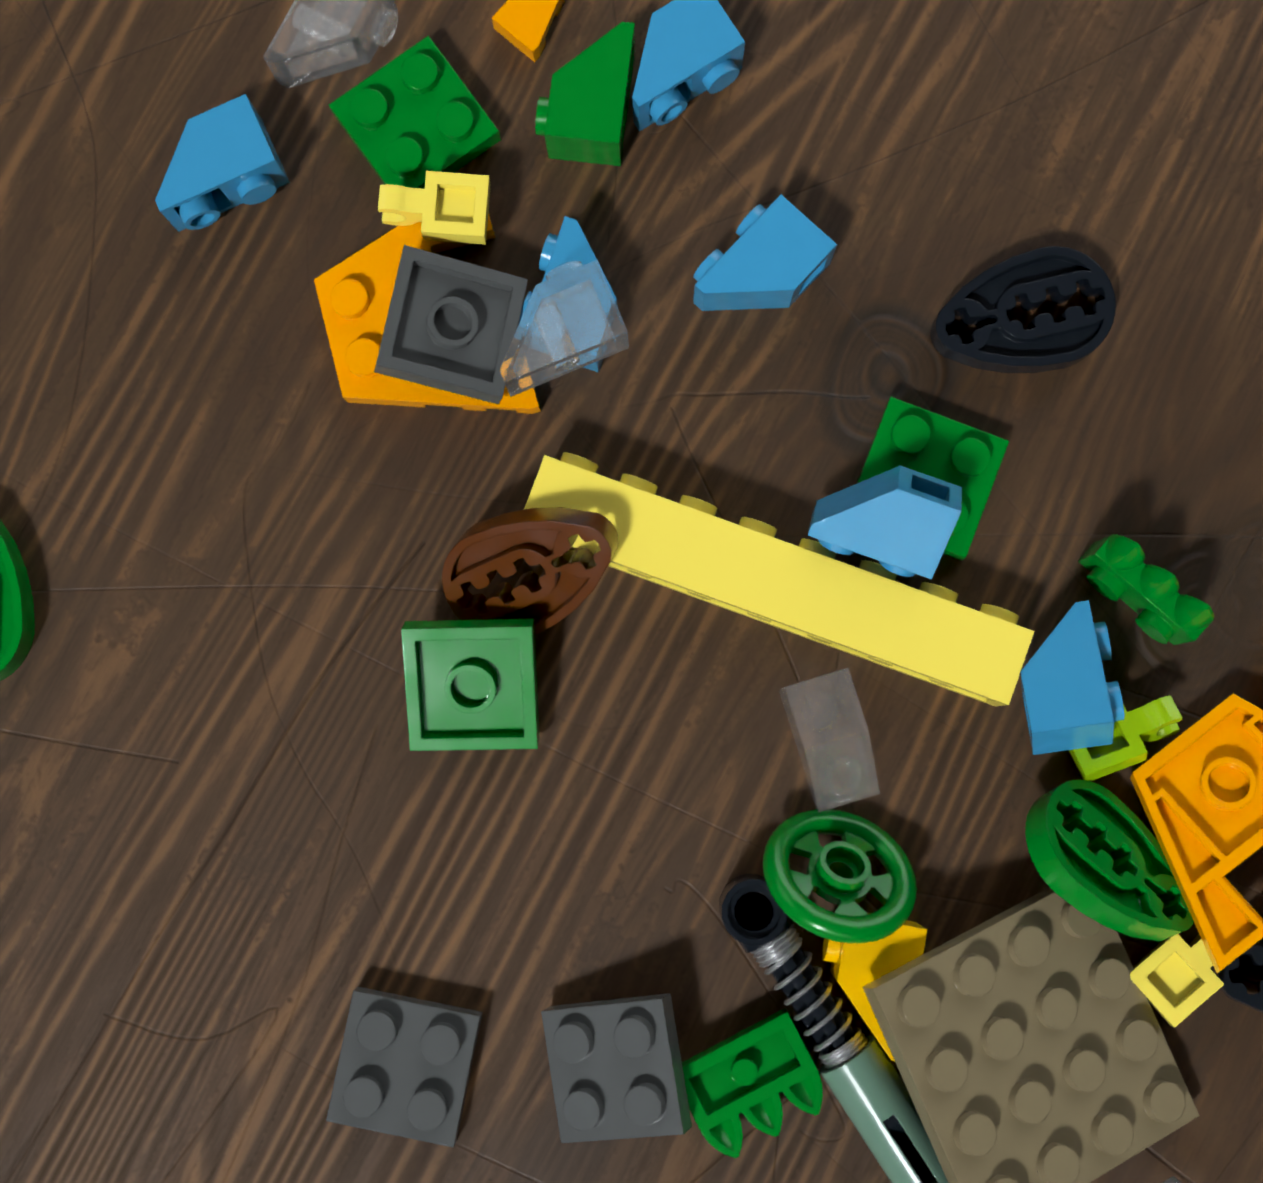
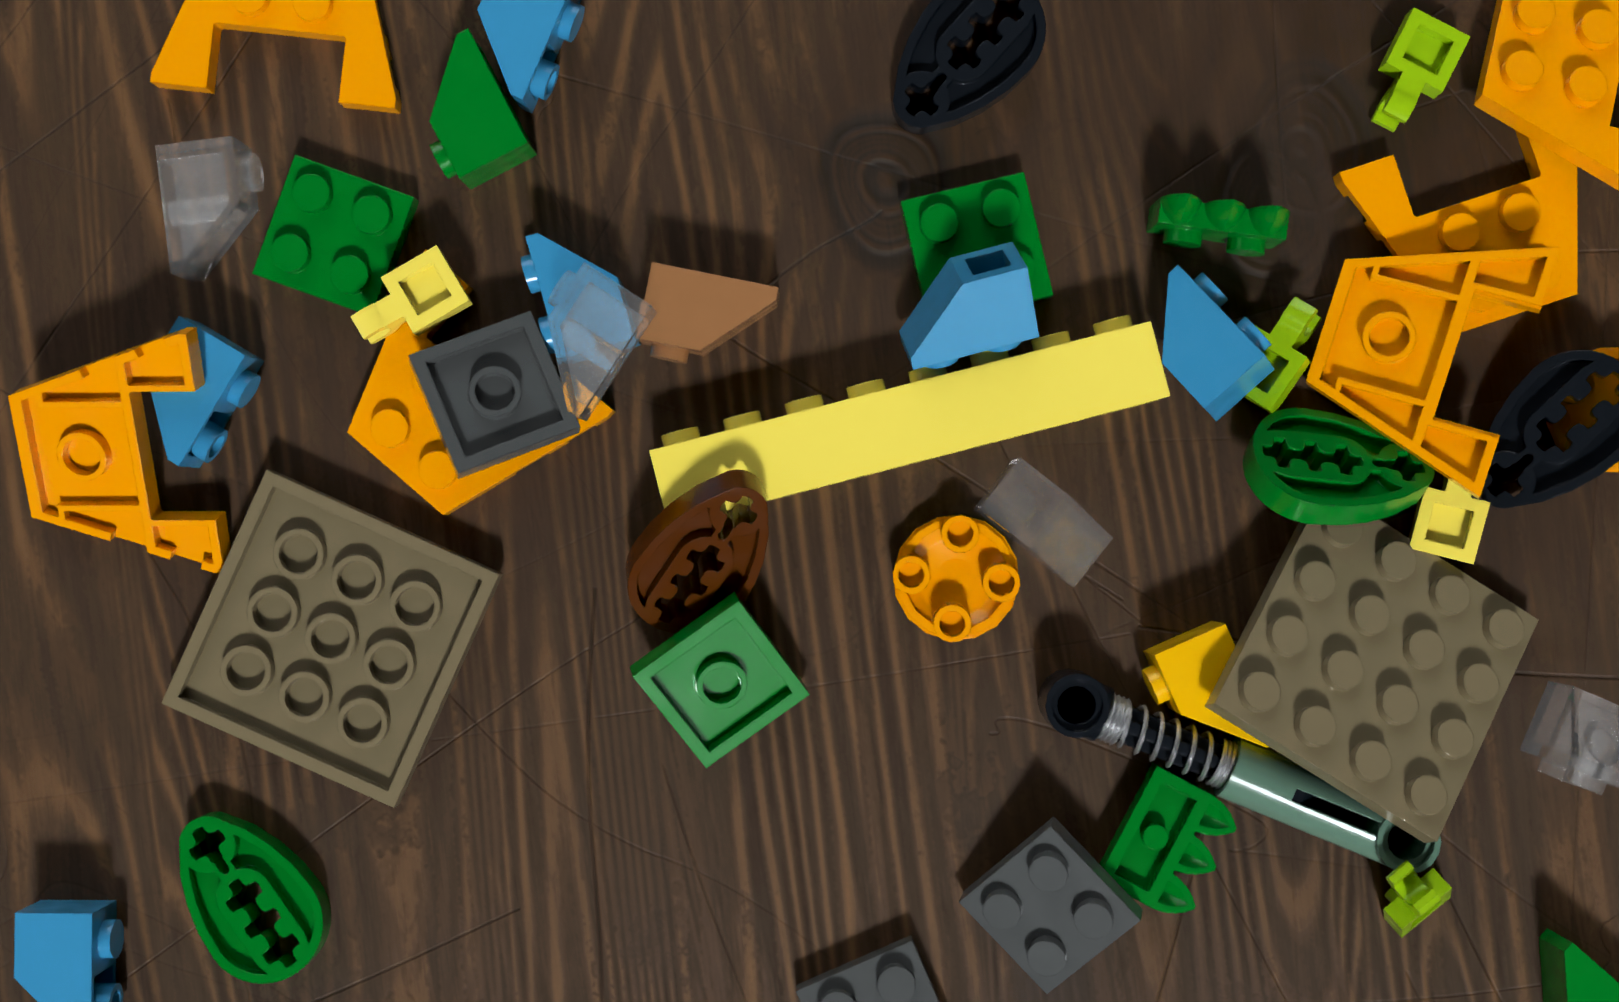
camera: 40 degrees left, 5 degrees up
(100, 158) = (91, 452): none -> light orange wing
(184, 436) = (332, 638): none -> dark tan plate
(666, 374) = (700, 310): none -> medium nougat slope
(725, 736) = (956, 577): none -> light orange dish
(769, 263) = (722, 160): dark azure slope -> none
(839, 875) = (1121, 612): green plate -> none

